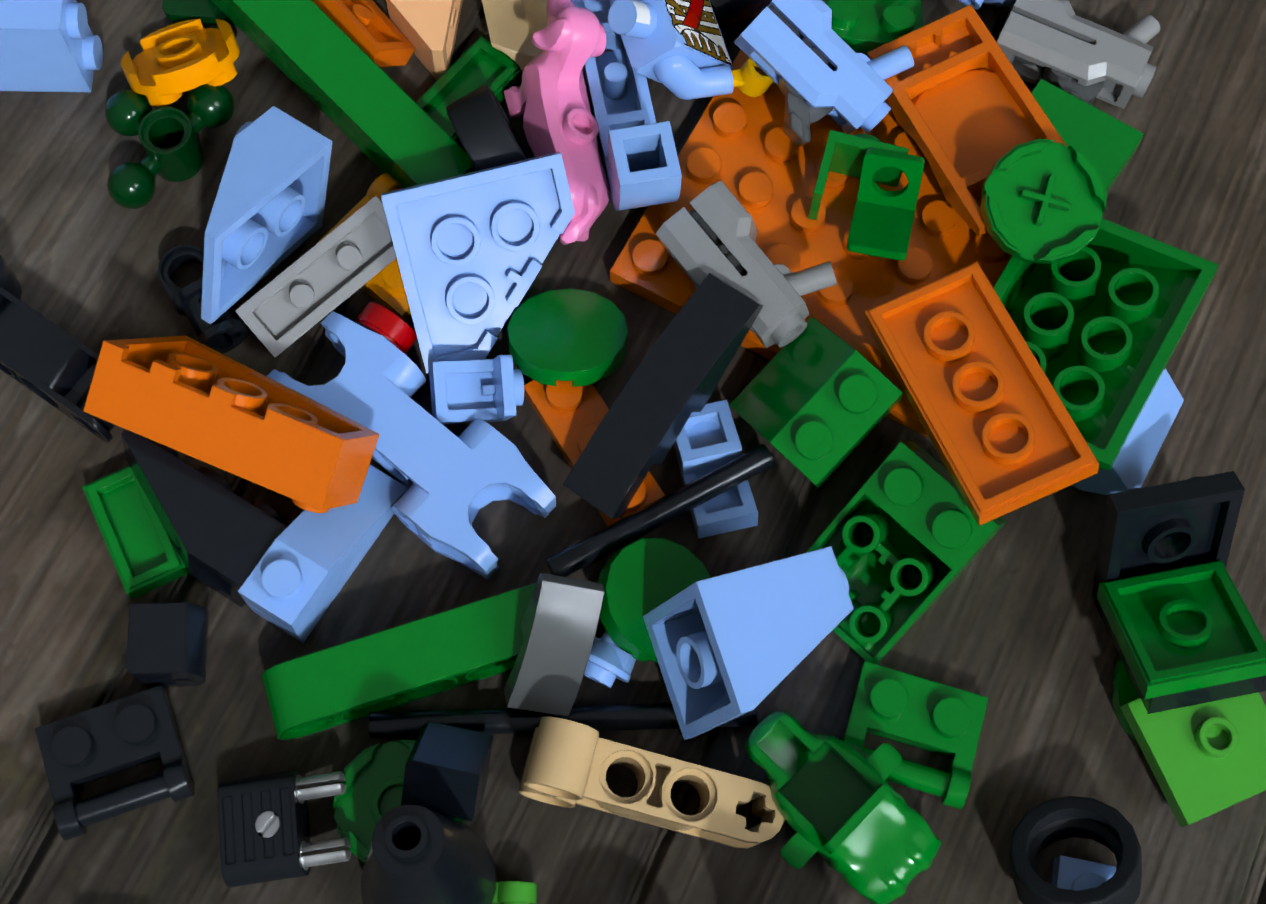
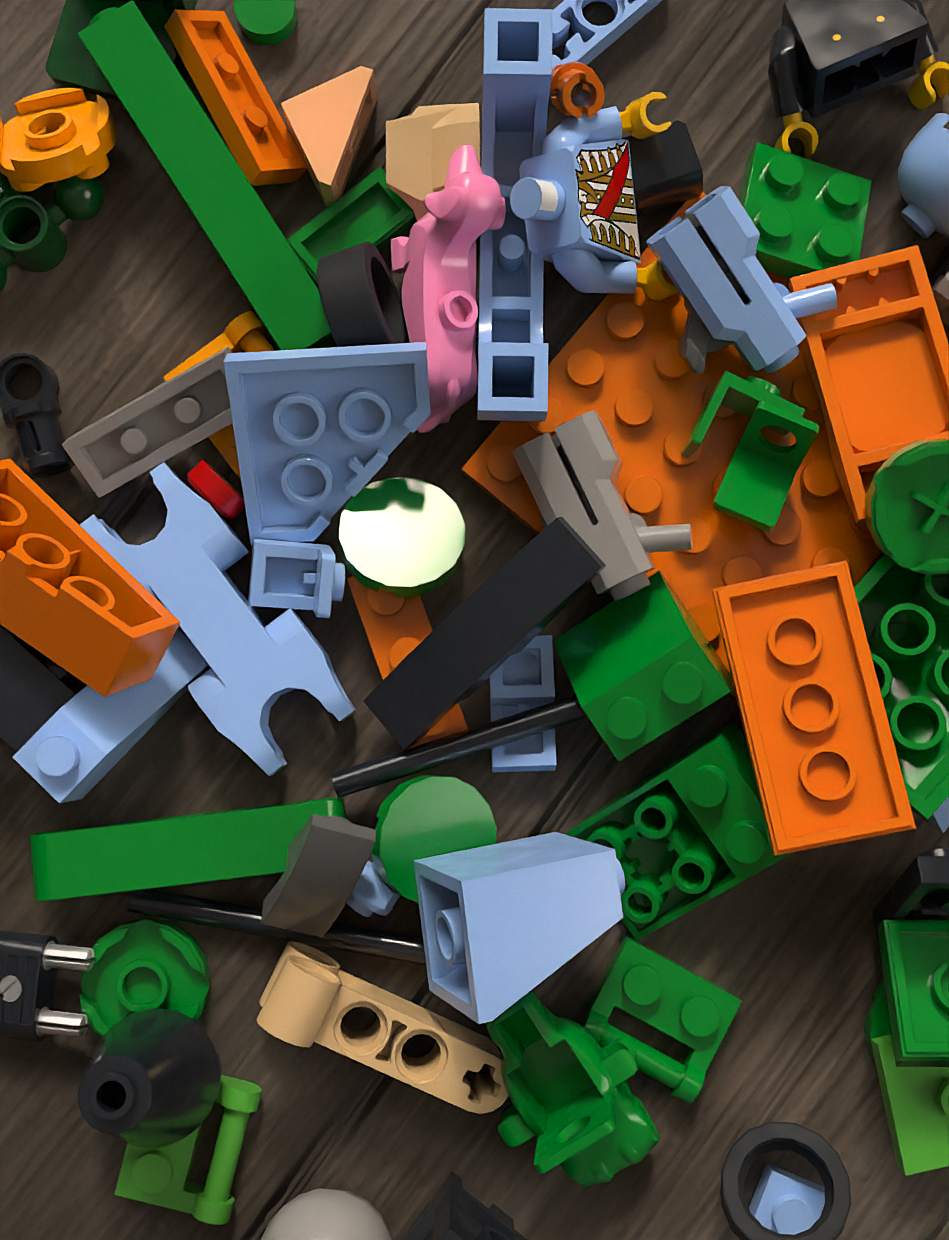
camera: 10 degrees right, 15 degrees up
(263, 207) = (103, 337): light blue slope -> none
(448, 770) = (188, 980): black piece -> none

